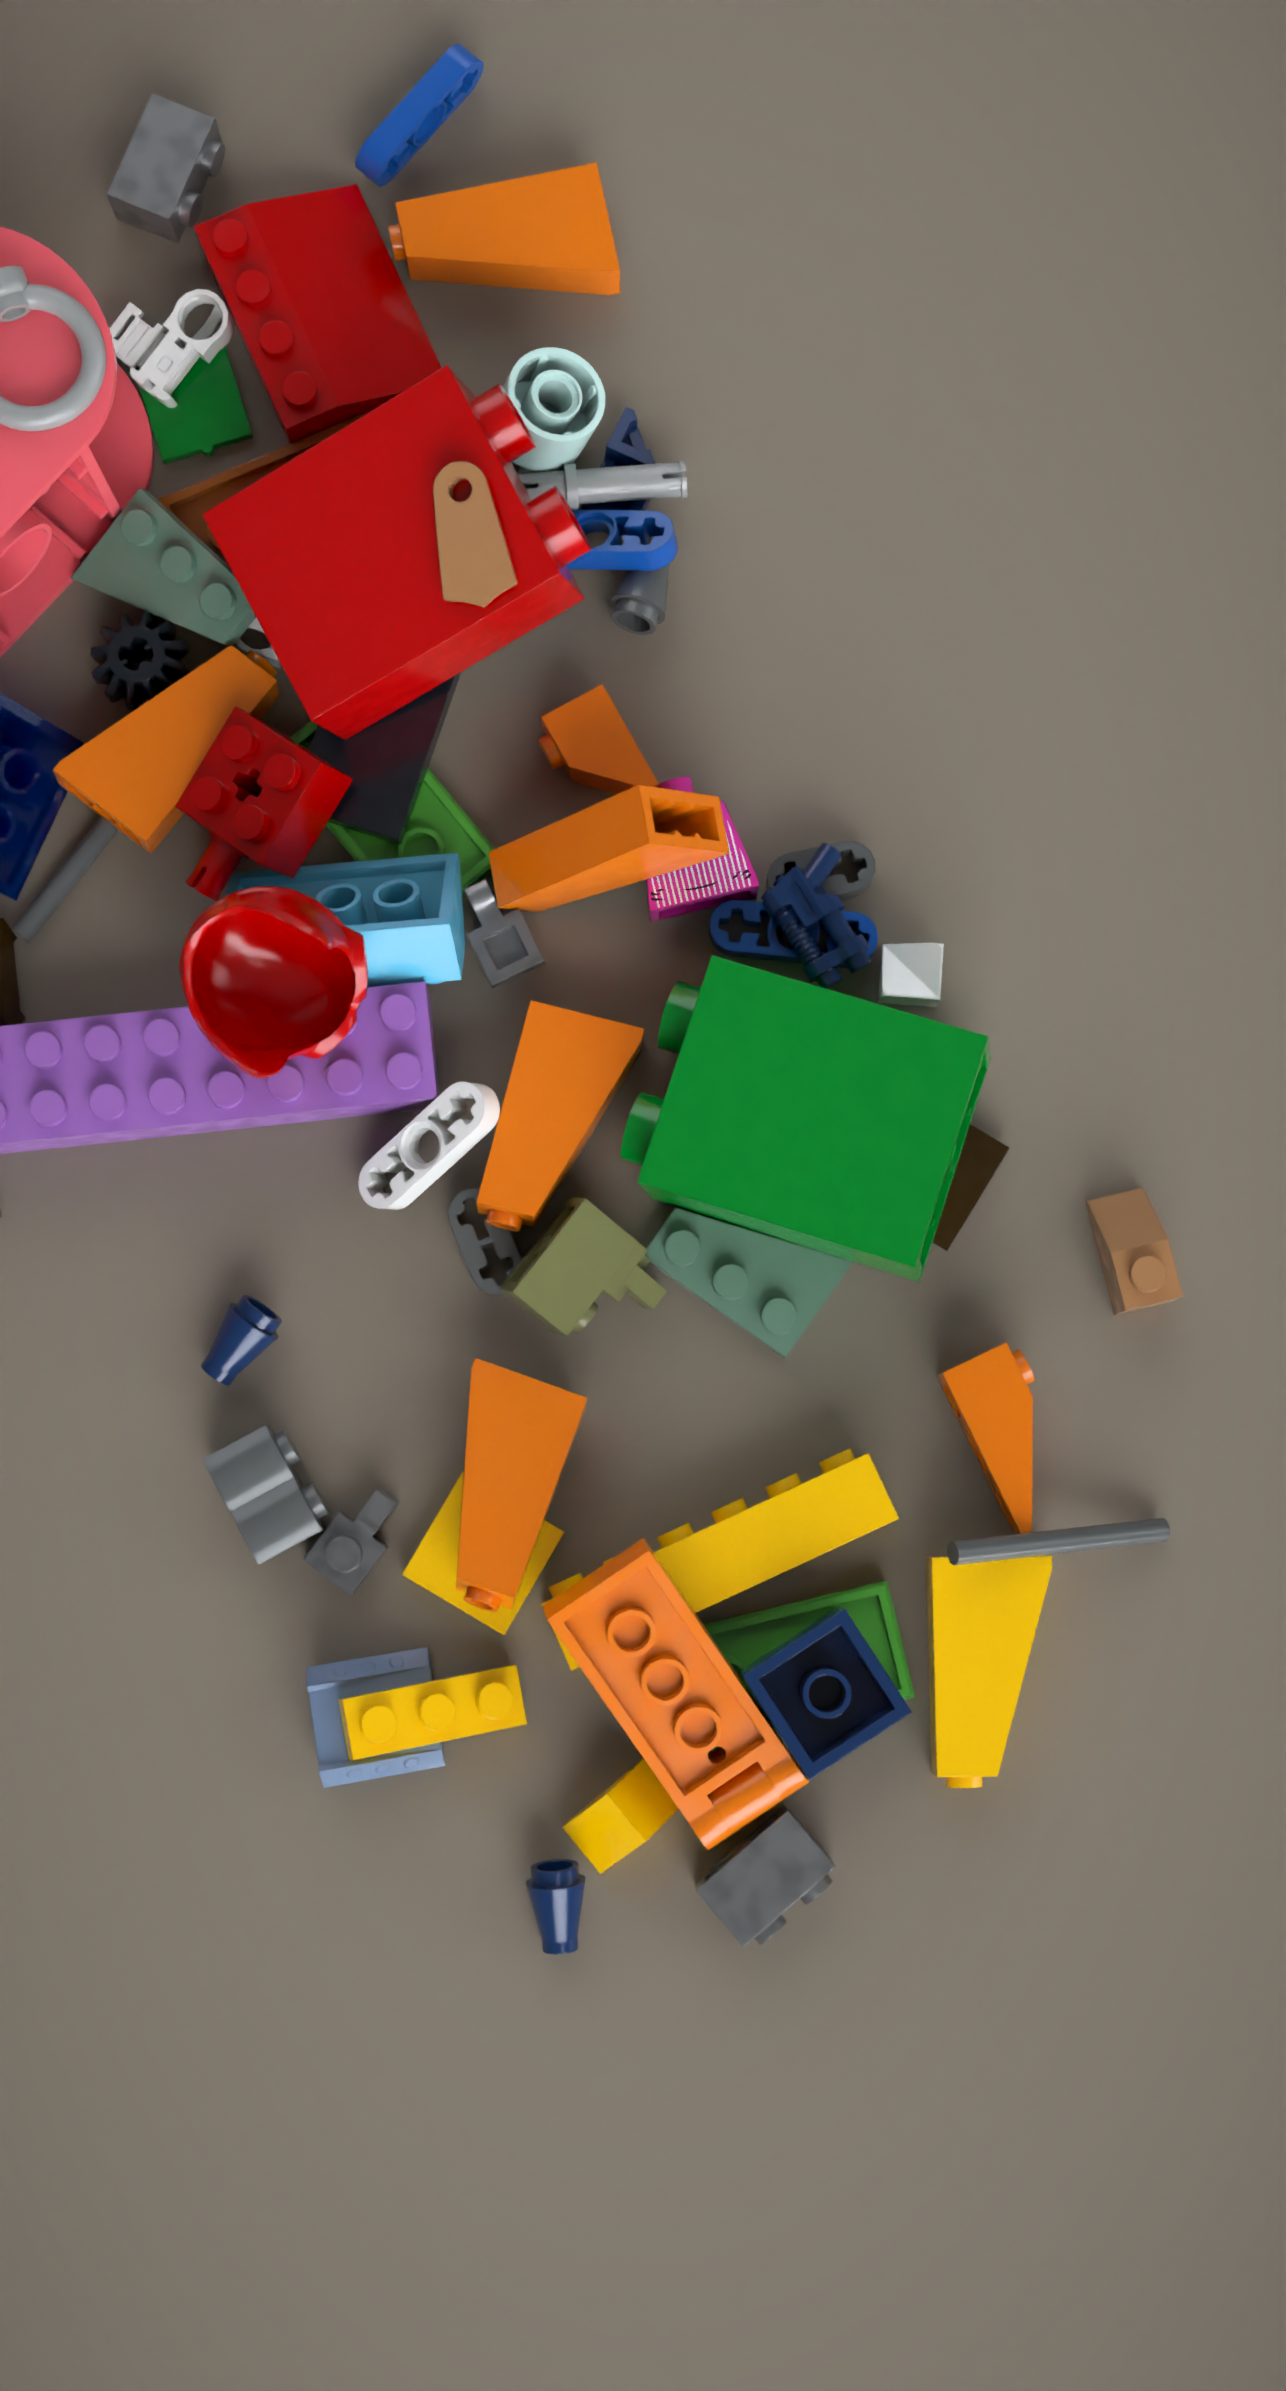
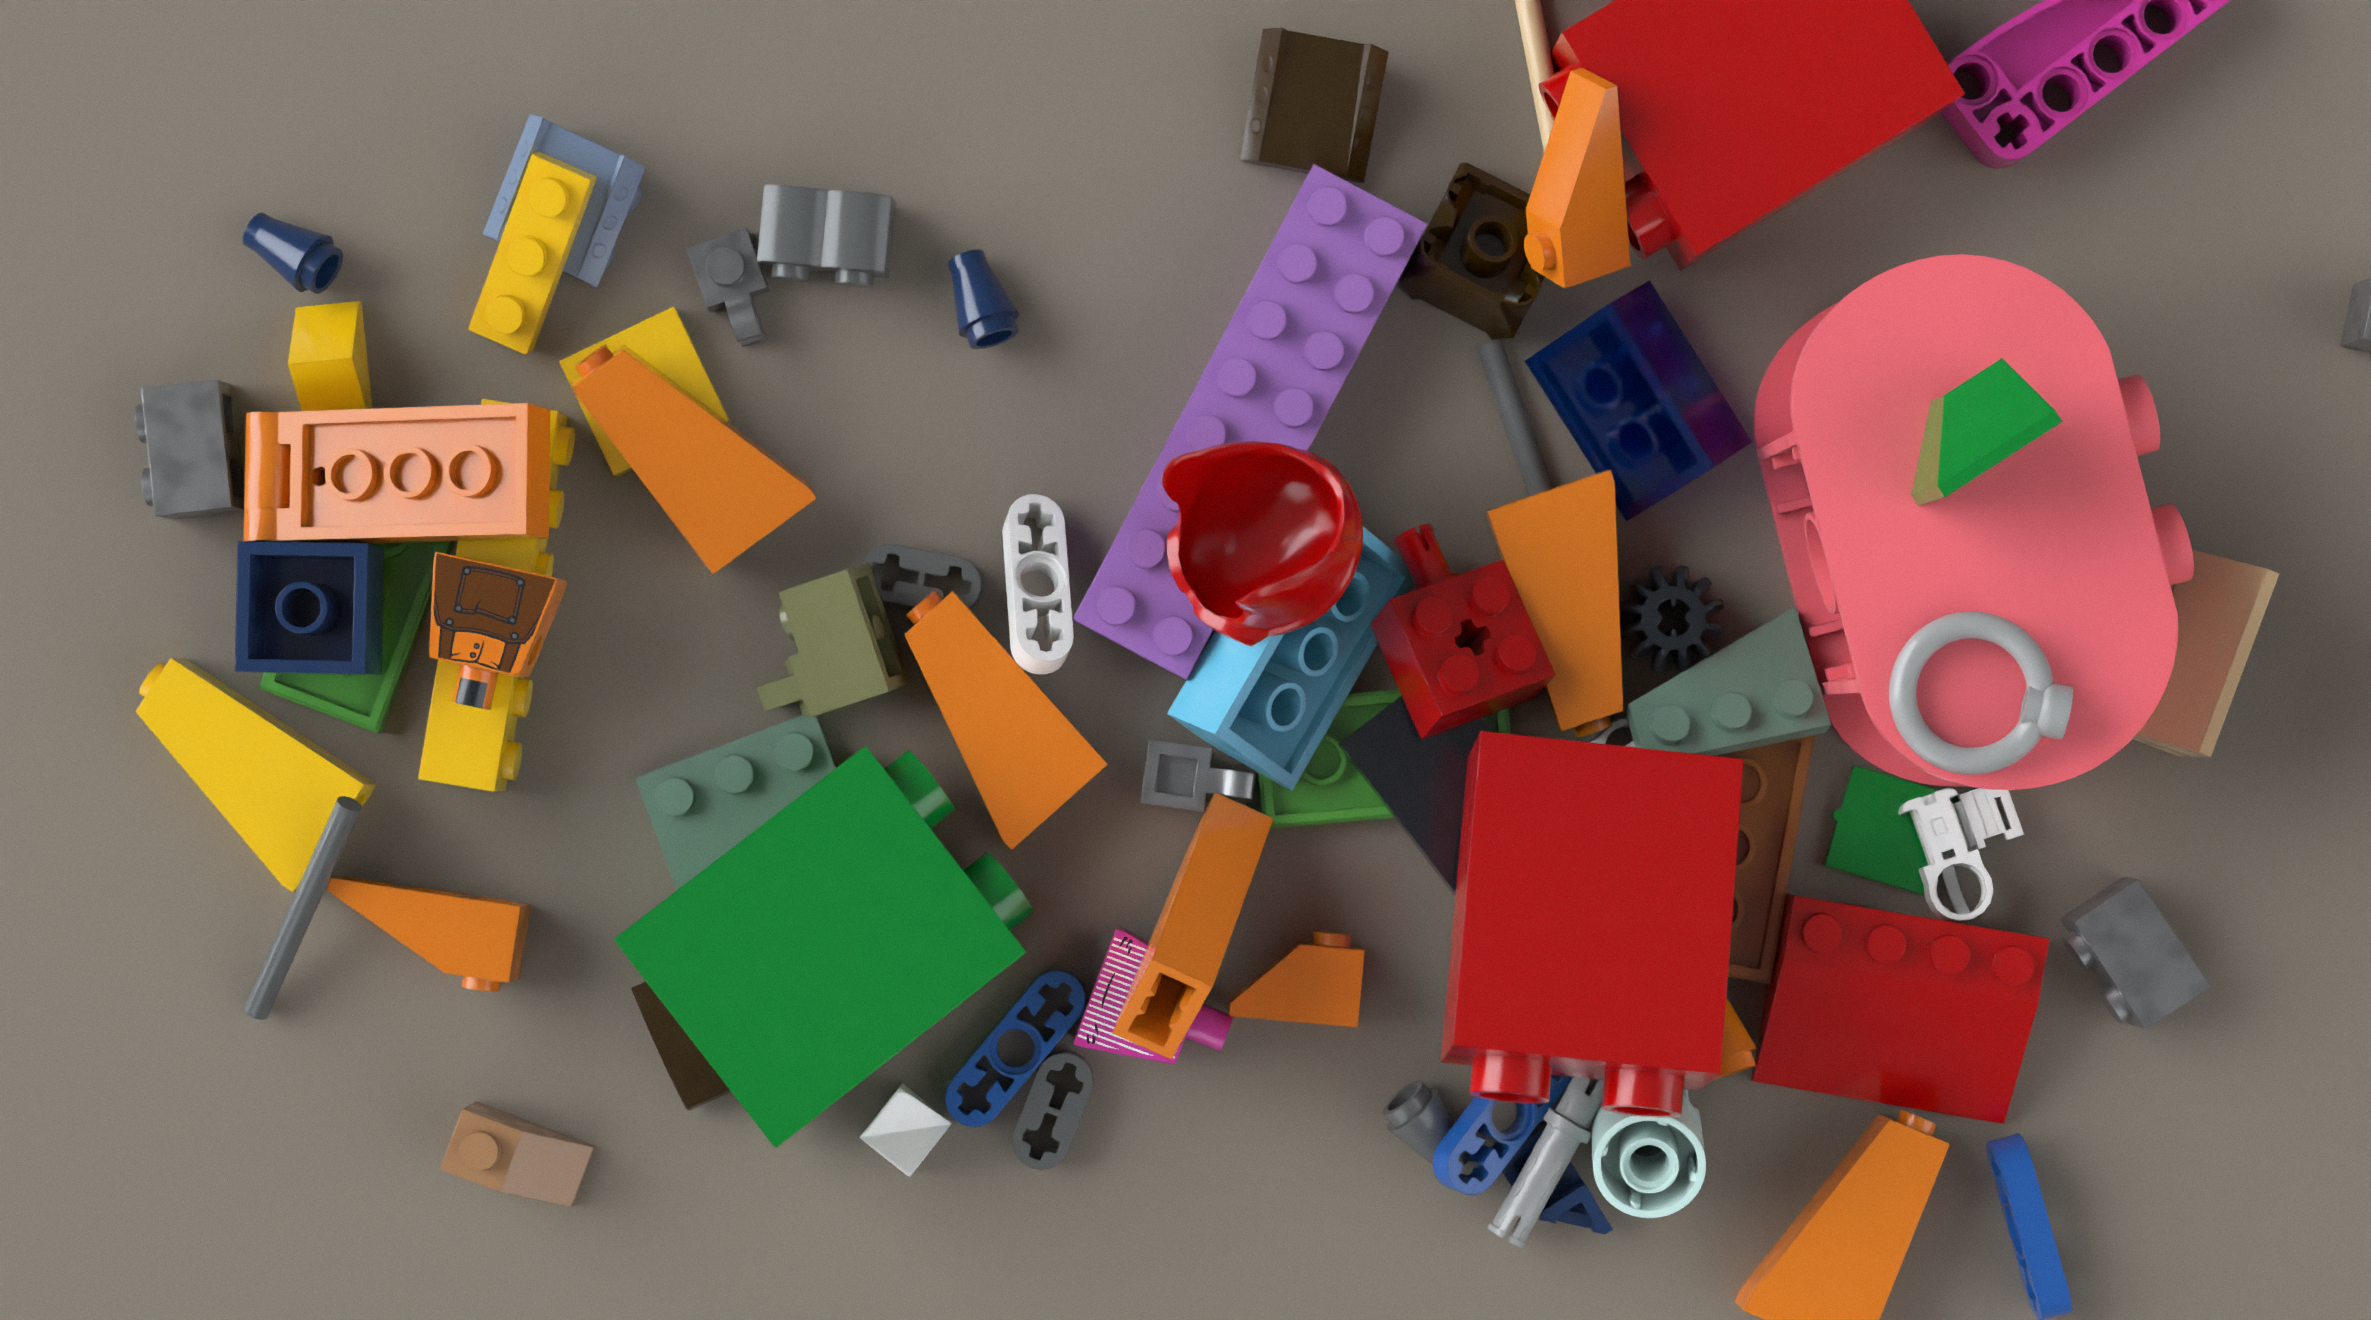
camera: 125 degrees right, 5 degrees up
(470, 539) = (1539, 984): medium nougat piece -> none
(740, 1541) = (489, 622): none -> torso
(802, 903) = (1032, 1073): dark blue piece -> none

